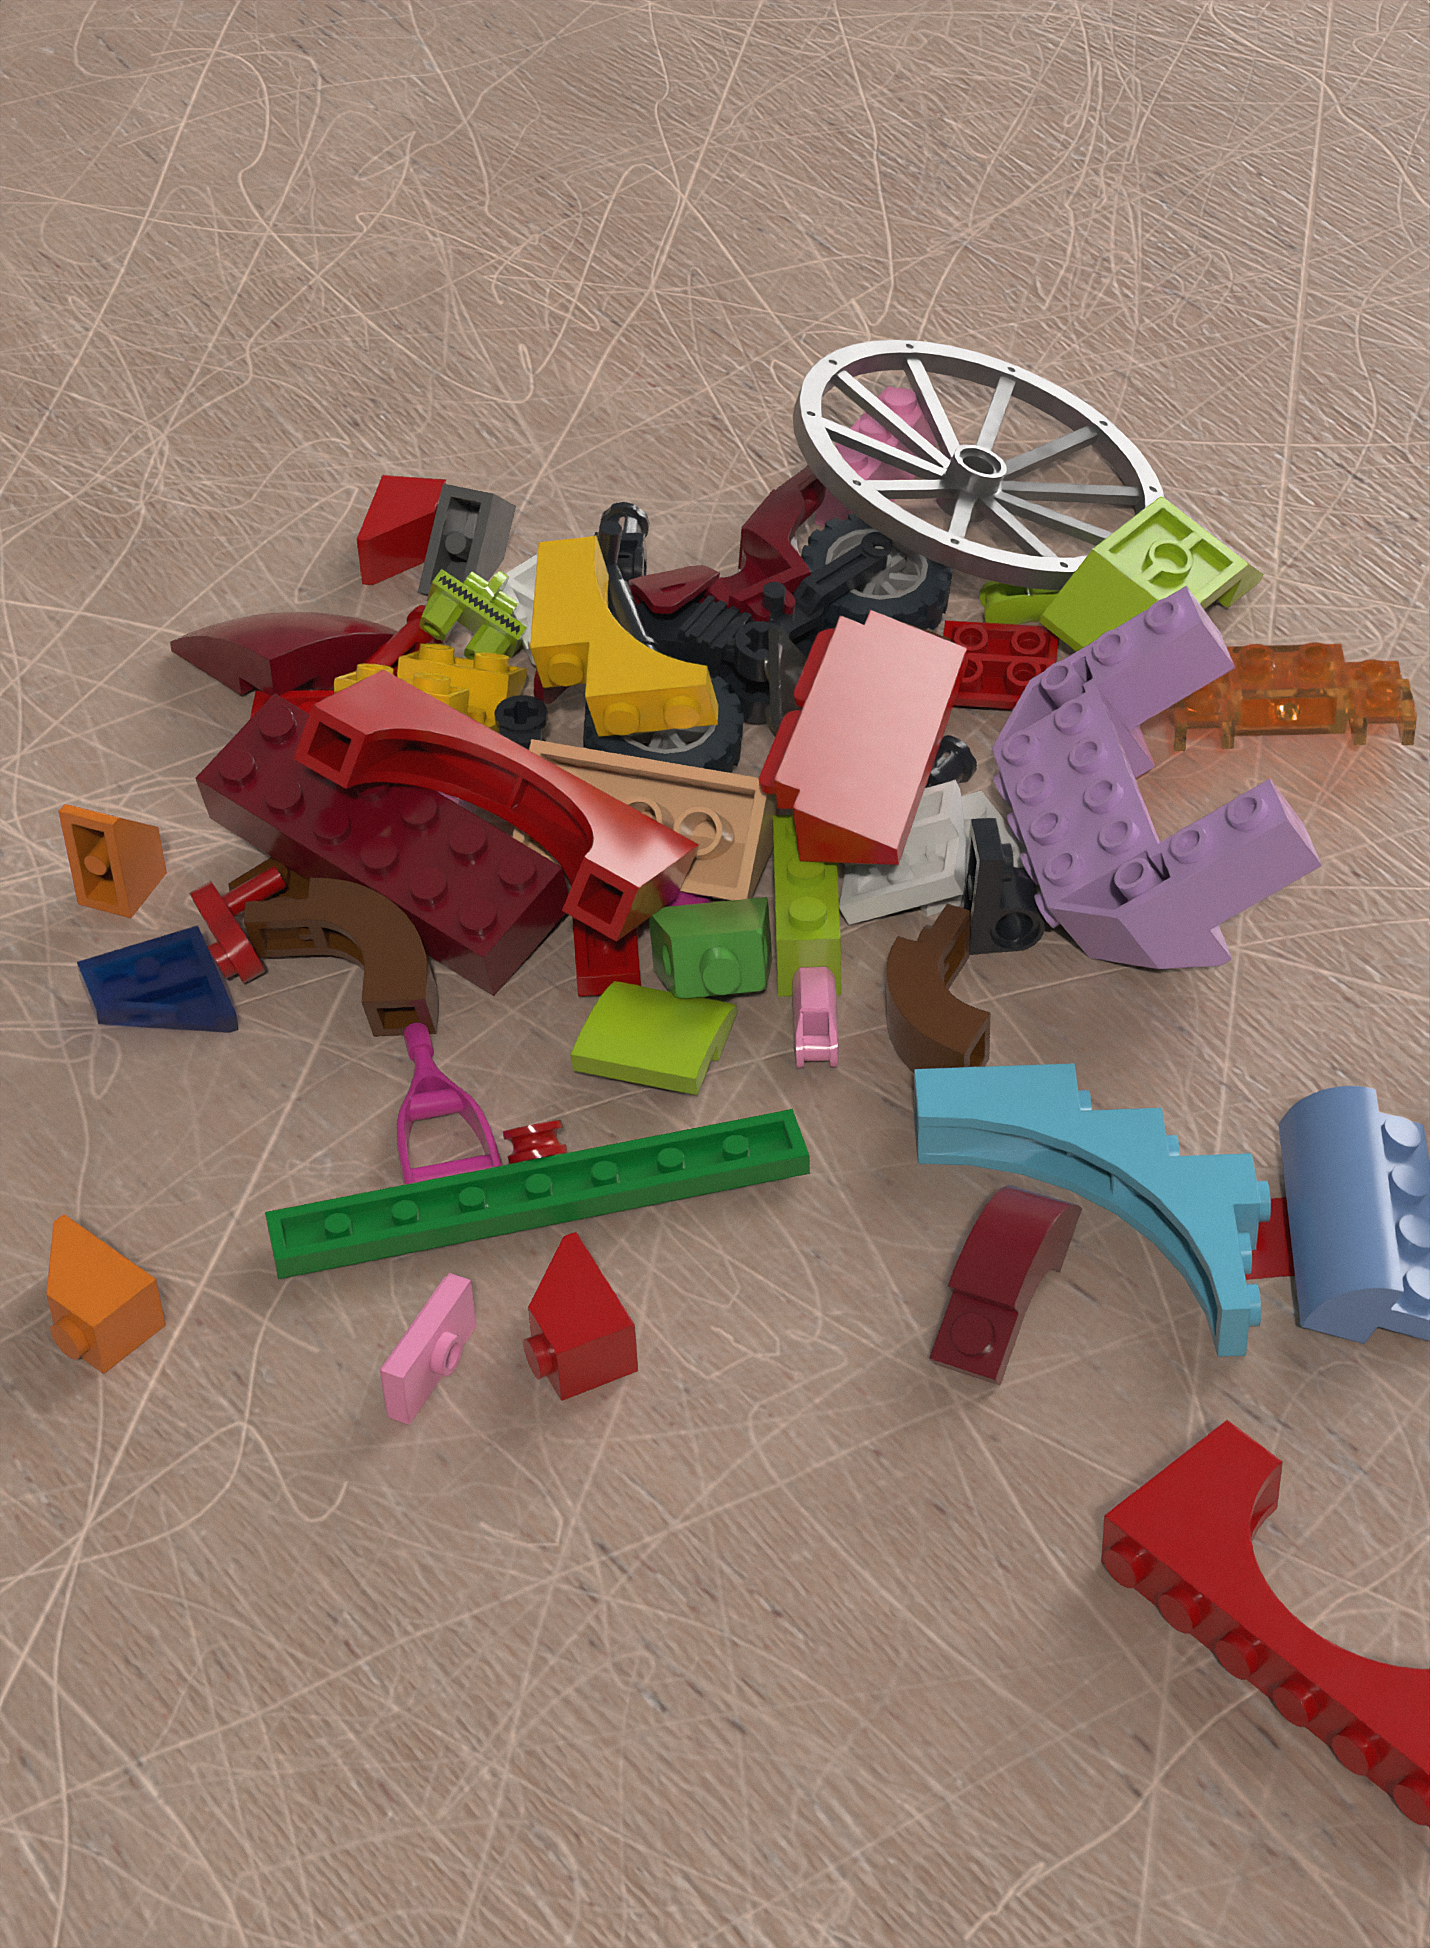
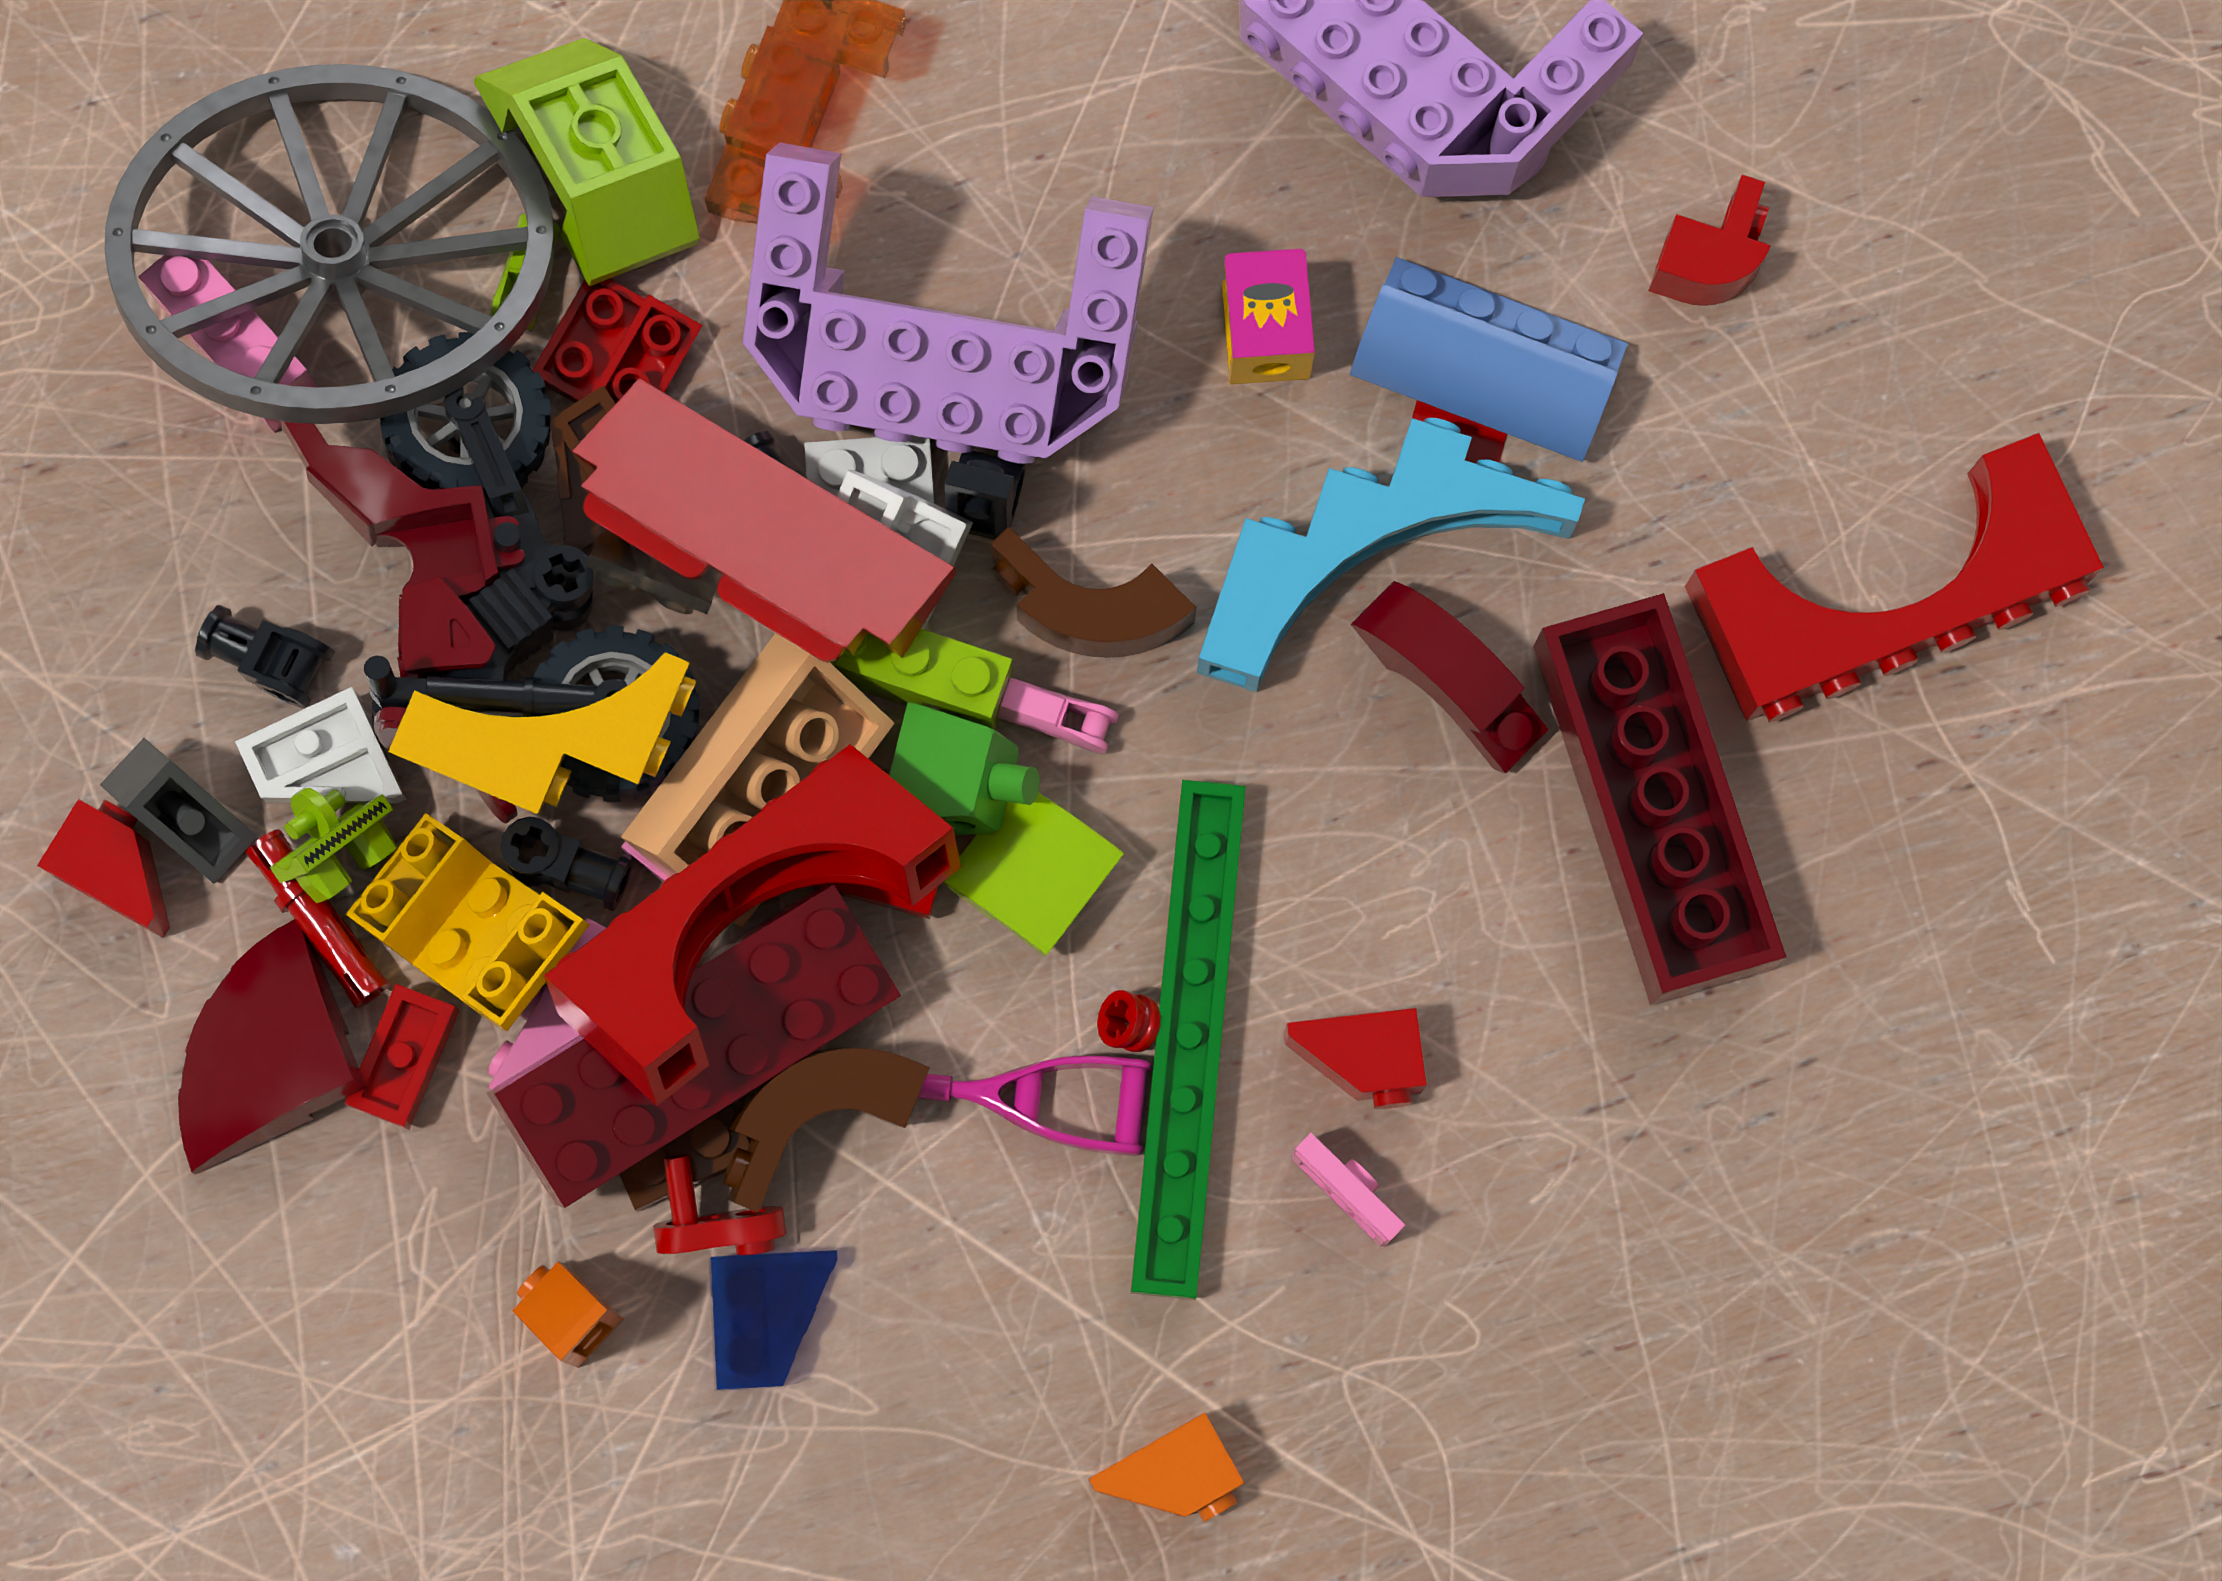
camera: 75 degrees left, 35 degrees up
(954, 1470) = (1658, 799): none -> dark red brick
(1289, 1037) = (1267, 316): none -> dark pink piece

